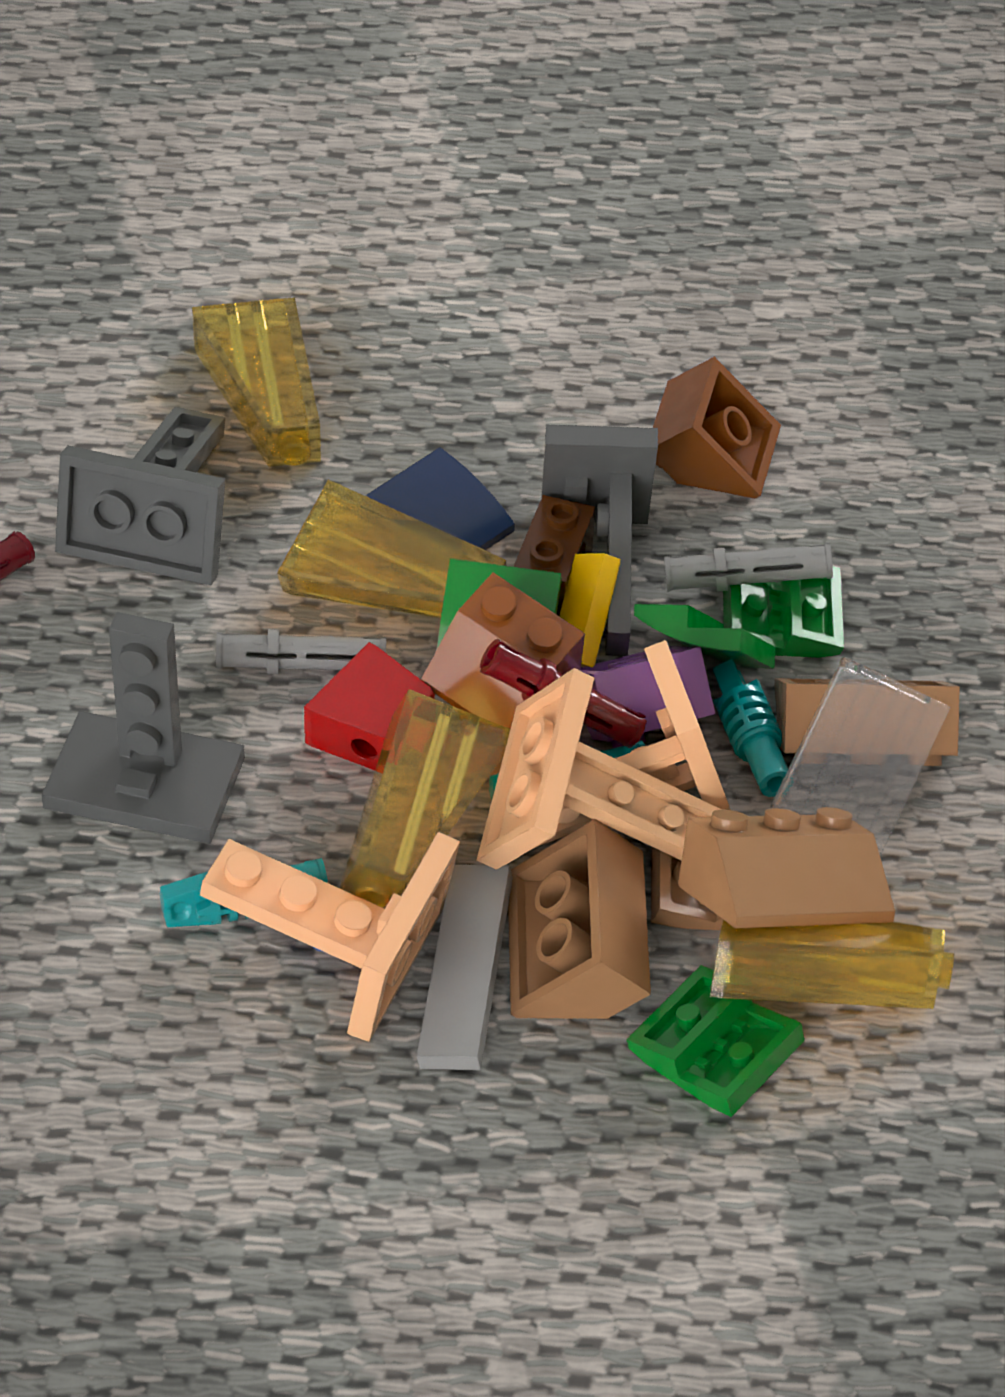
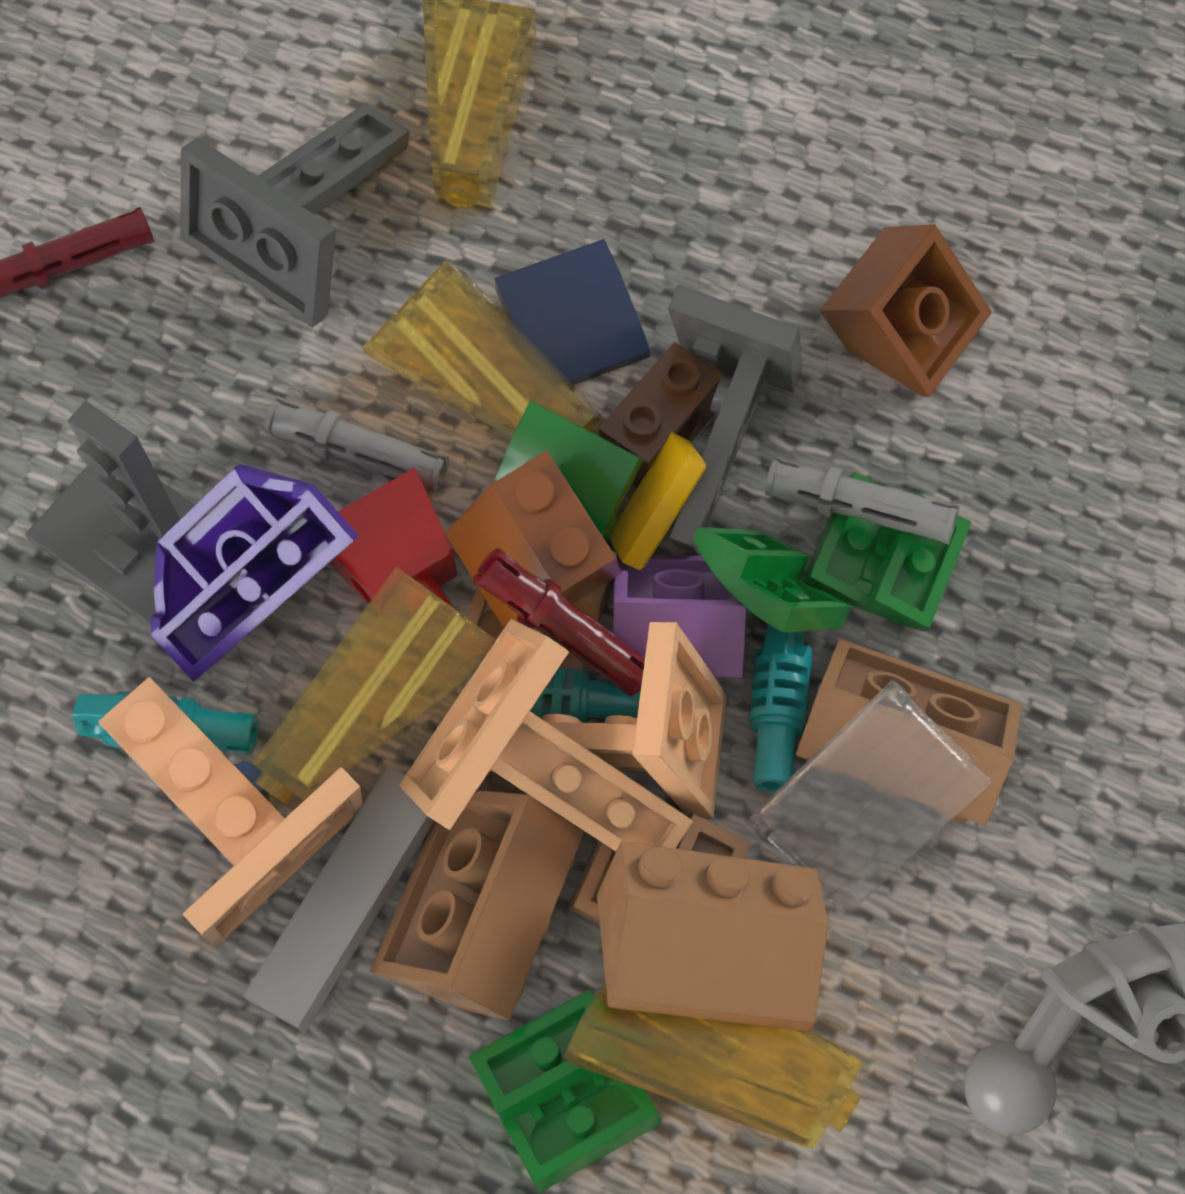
camera: 25 degrees right, 20 degrees up
(267, 731) = (239, 562): none -> dark purple wedge

